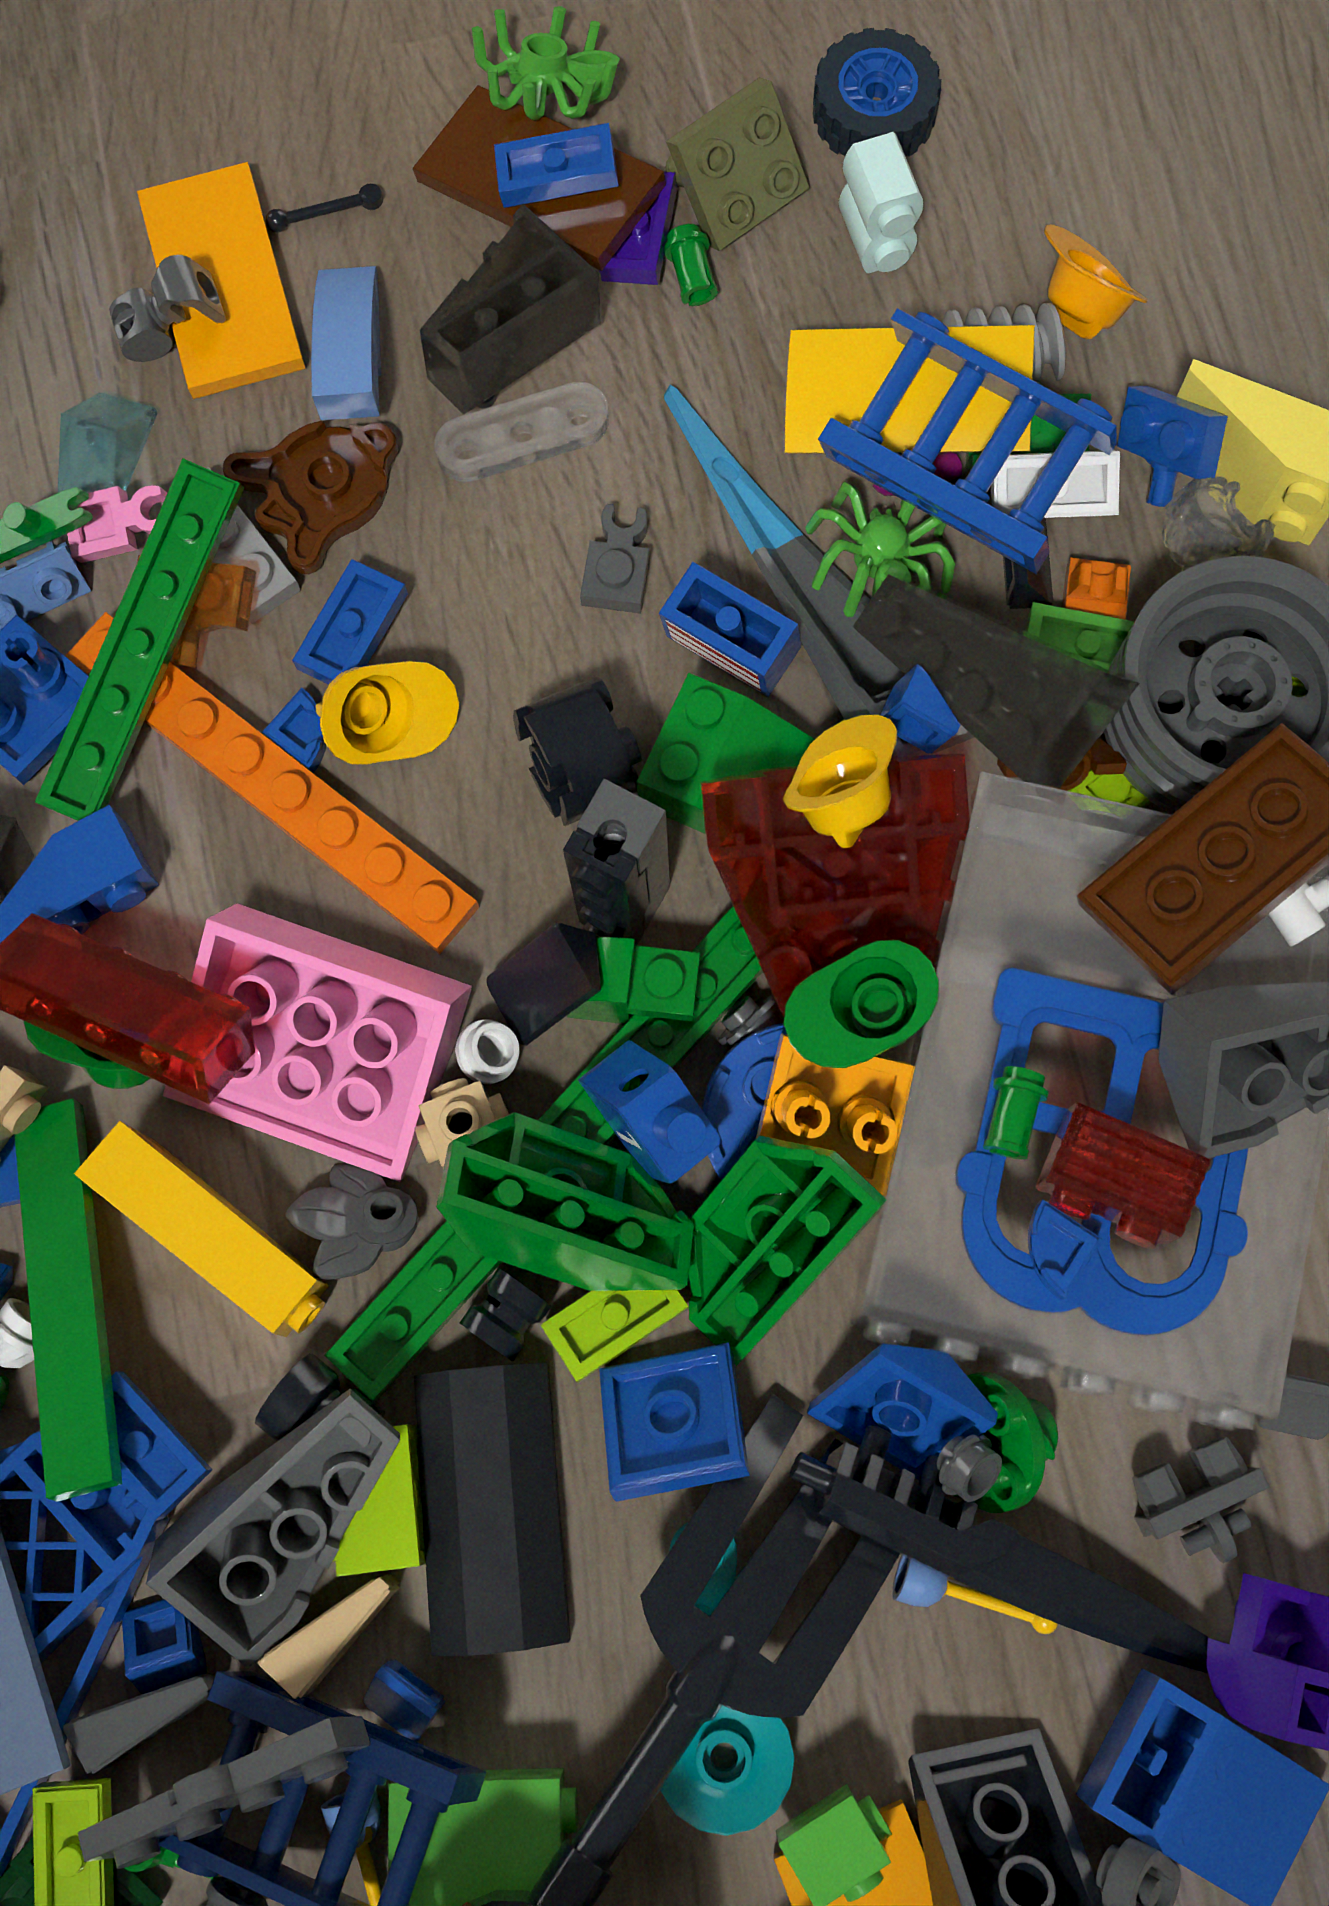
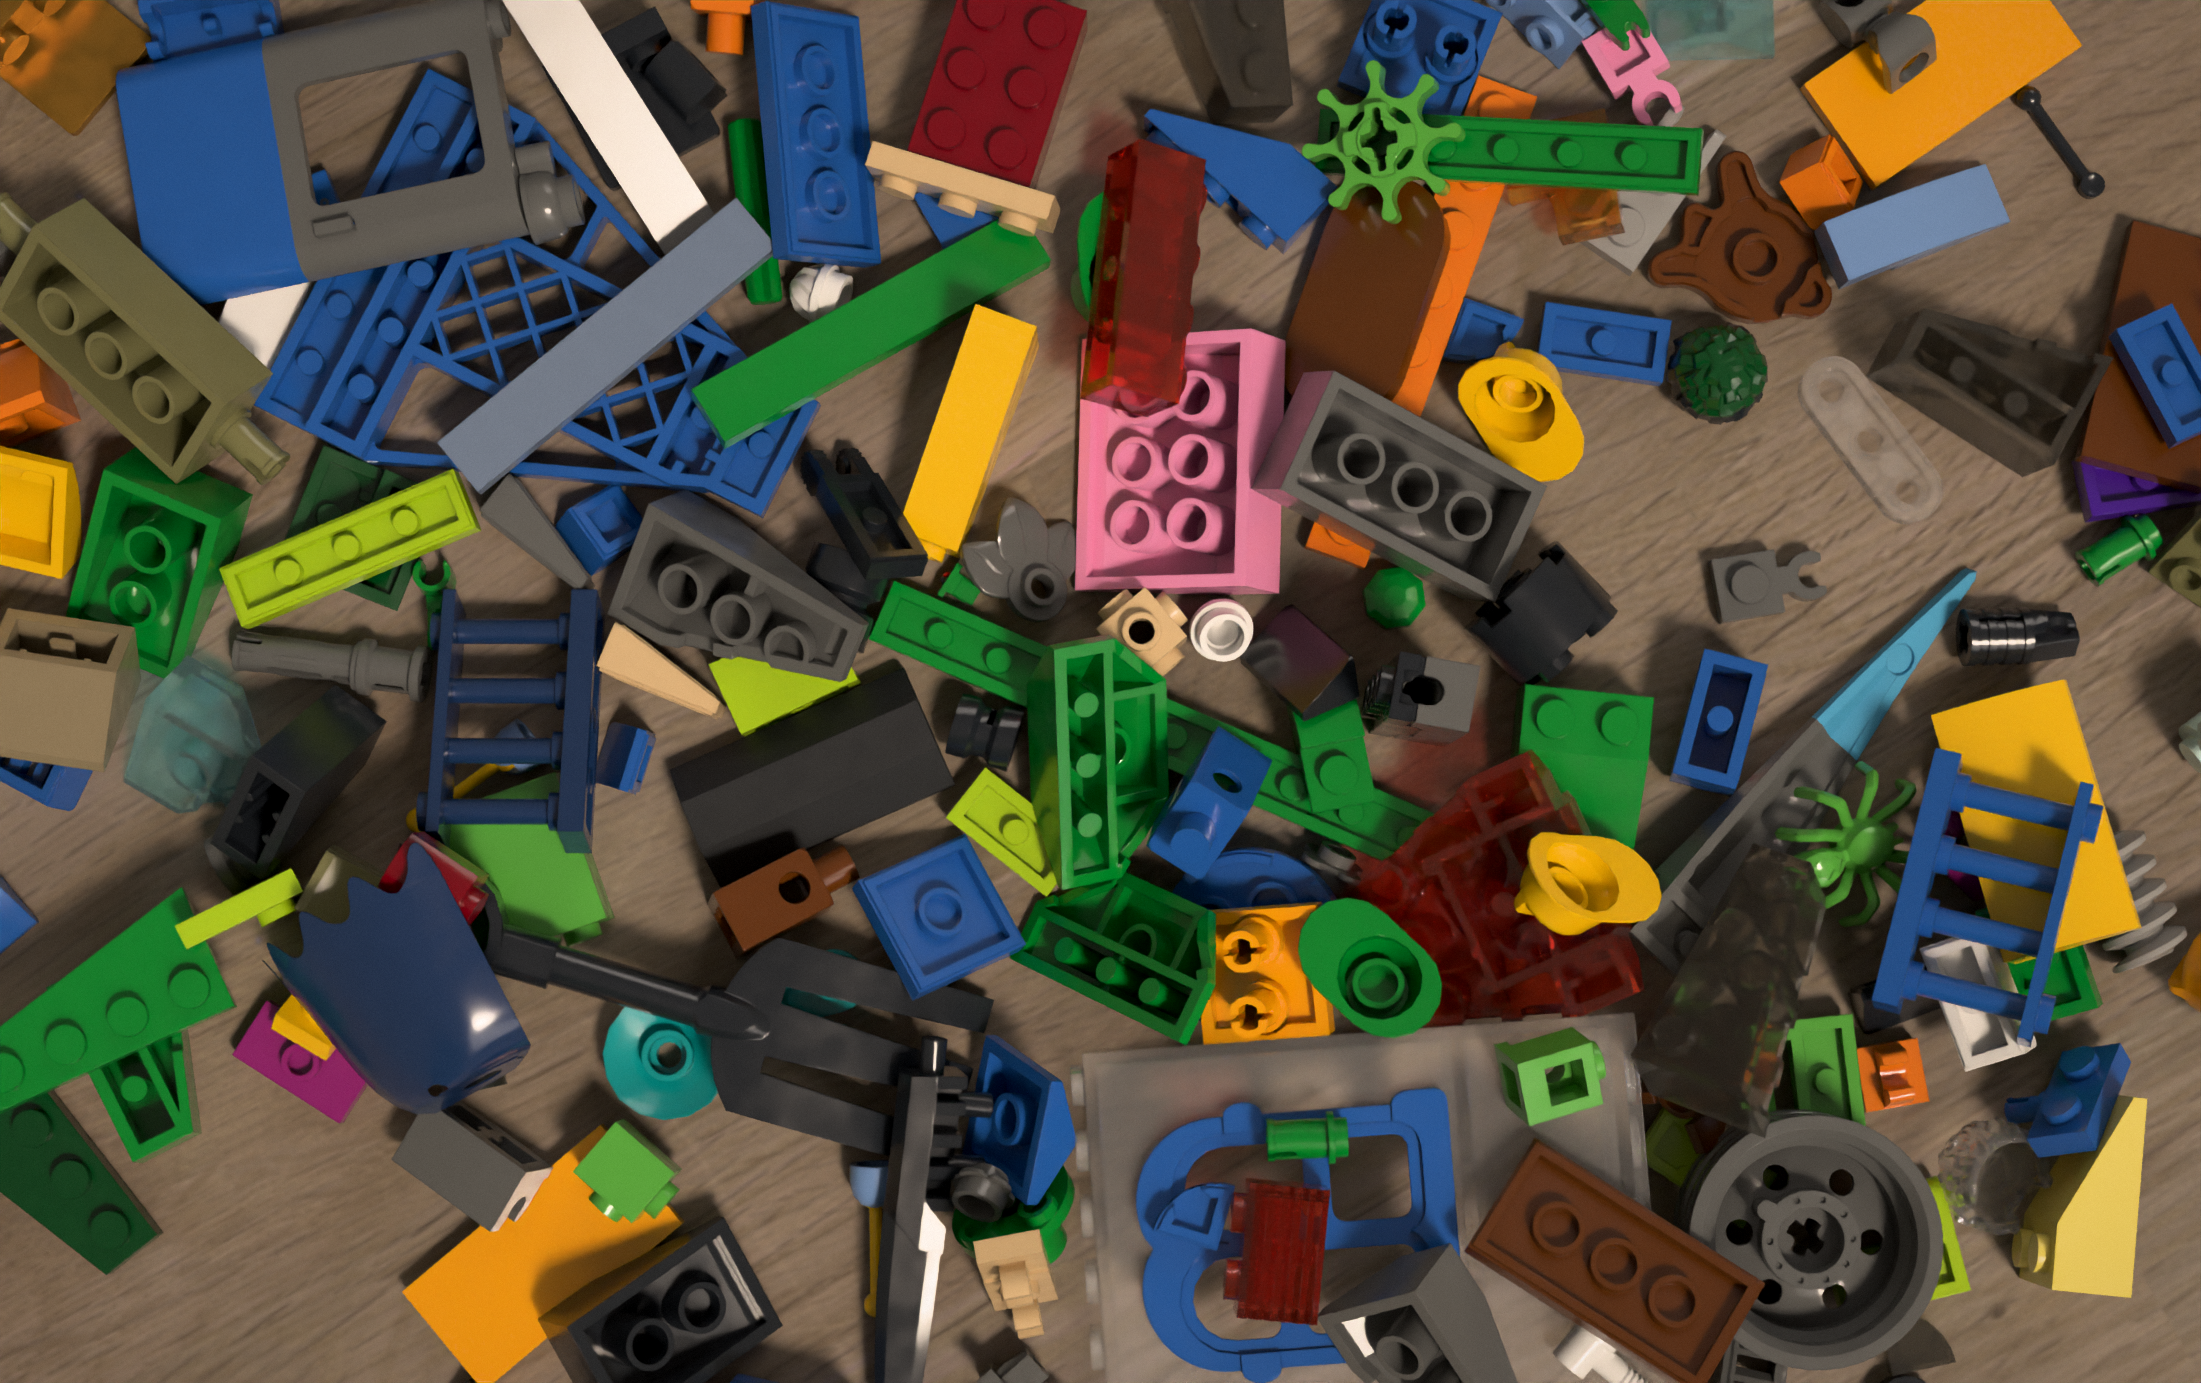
camera: 70 degrees right, 10 degrees up
(83, 720) = (1363, 124): none -> bright green gear
(199, 1799) = (493, 619): dark grey hinge -> none
(227, 817) = (1369, 291): none -> reddish brown tile
(245, 1361) = (864, 515): none -> black hinge
(278, 400) = (1821, 181): none -> orange slope
(354, 1294) = (958, 586): none -> green piece
(406, 835) = (1399, 486): none -> dark grey brick
(413, 535) = (1717, 373): none -> dark green piece
(515, 885) = (1394, 598): none -> green tile
(604, 1612) = (756, 914): none -> reddish brown torso
(737, 370) = (2014, 636): none -> black hinge
(920, 711) = (1678, 933): blue slope -> none
(1022, 860) = (1565, 1090): none -> bright green brick
(1065, 1459) = (1017, 1277): none -> tan plate

